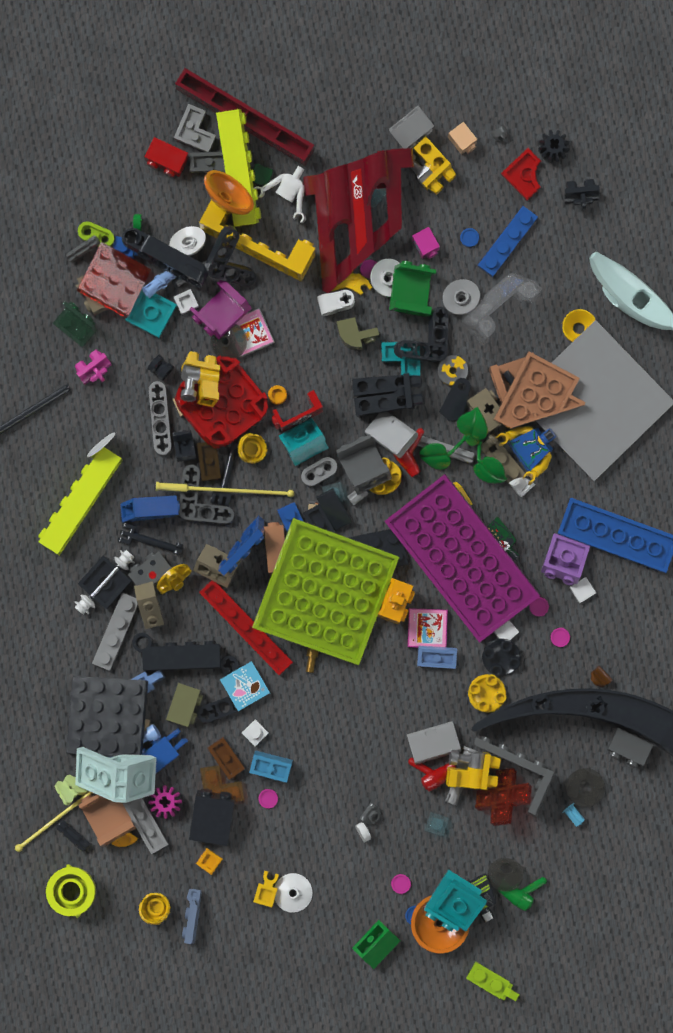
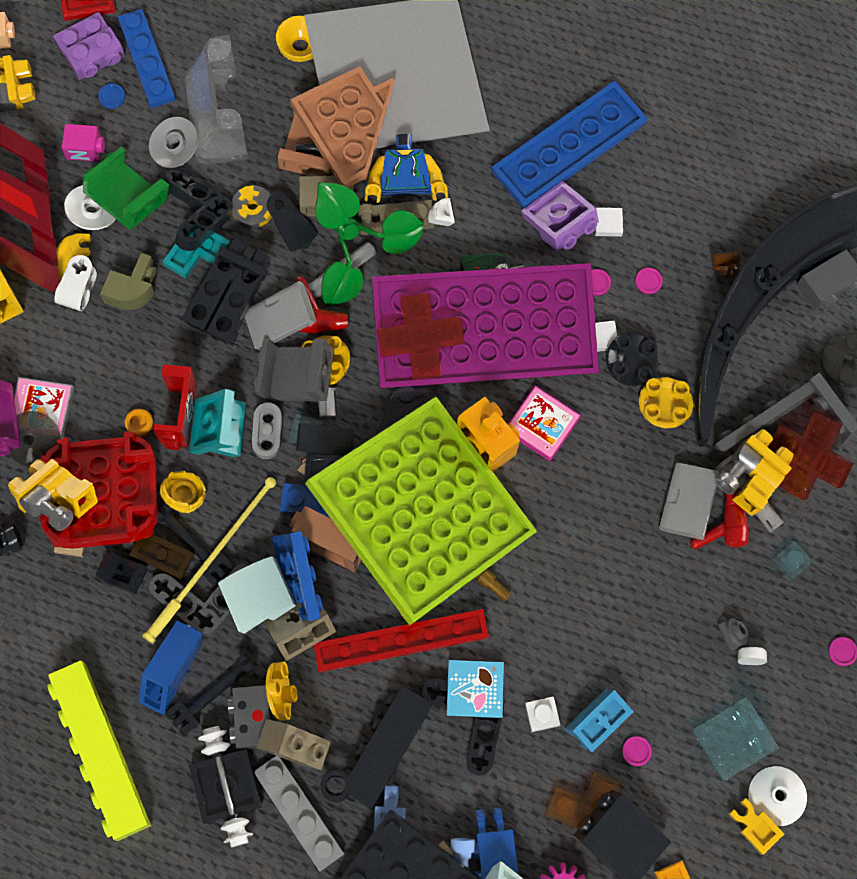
camera: 60 degrees left, 10 degrees down
(101, 444) = (46, 676): white sticker -> none
(160, 418) = (65, 585): light grey beam -> none
(184, 705) = (451, 782): olive brick -> none
(219, 530) = (257, 594): none -> light aqua slope
(226, 758) = (553, 772): reddish brown plate -> none
(307, 849) = (735, 739): none -> clear light blue bracket
(366, 268) = (64, 227): dark pink piece -> none
(426, 525) = (420, 336): none -> clear red plate
(437, 657) = (585, 432): medium blue plate -> none
(492, 202) = (89, 46): none -> medium lavender plate

